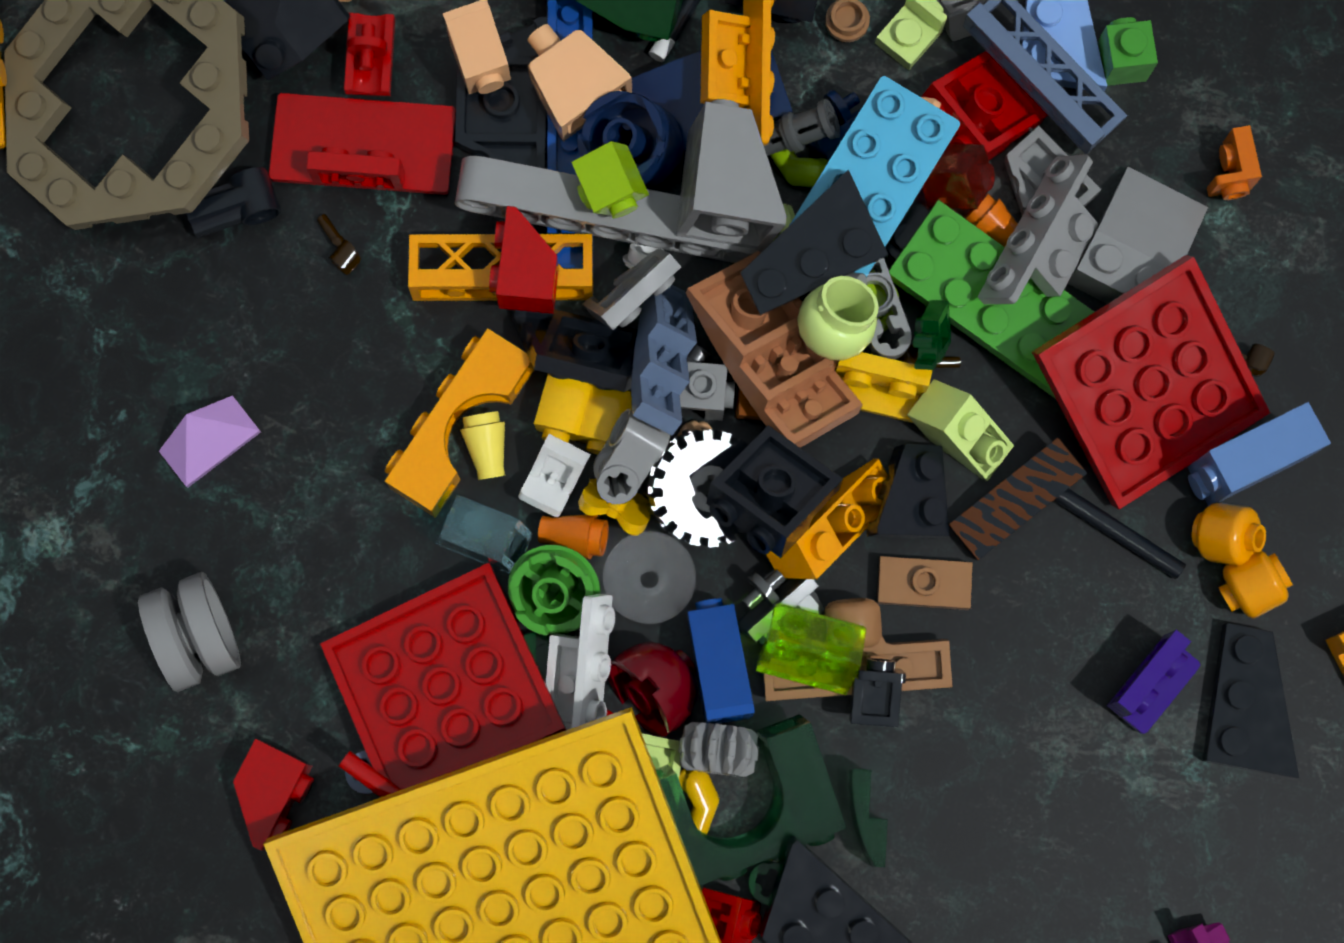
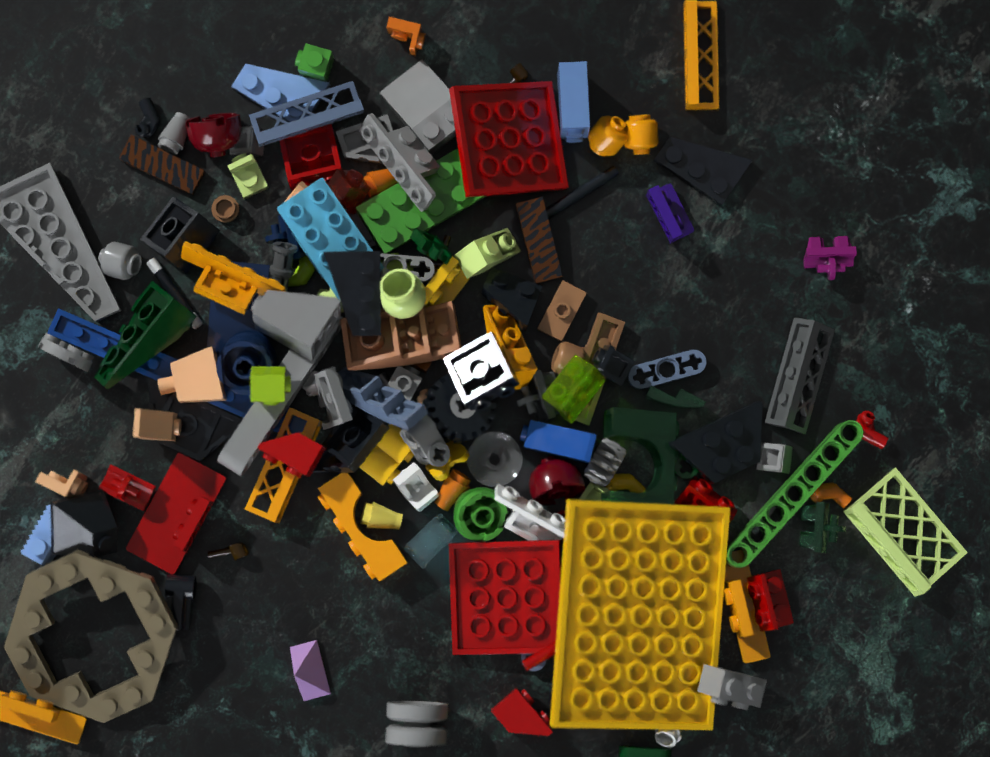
camera: 65 degrees left, 5 degrees up
(921, 820) = (685, 356): none -> sand blue beam

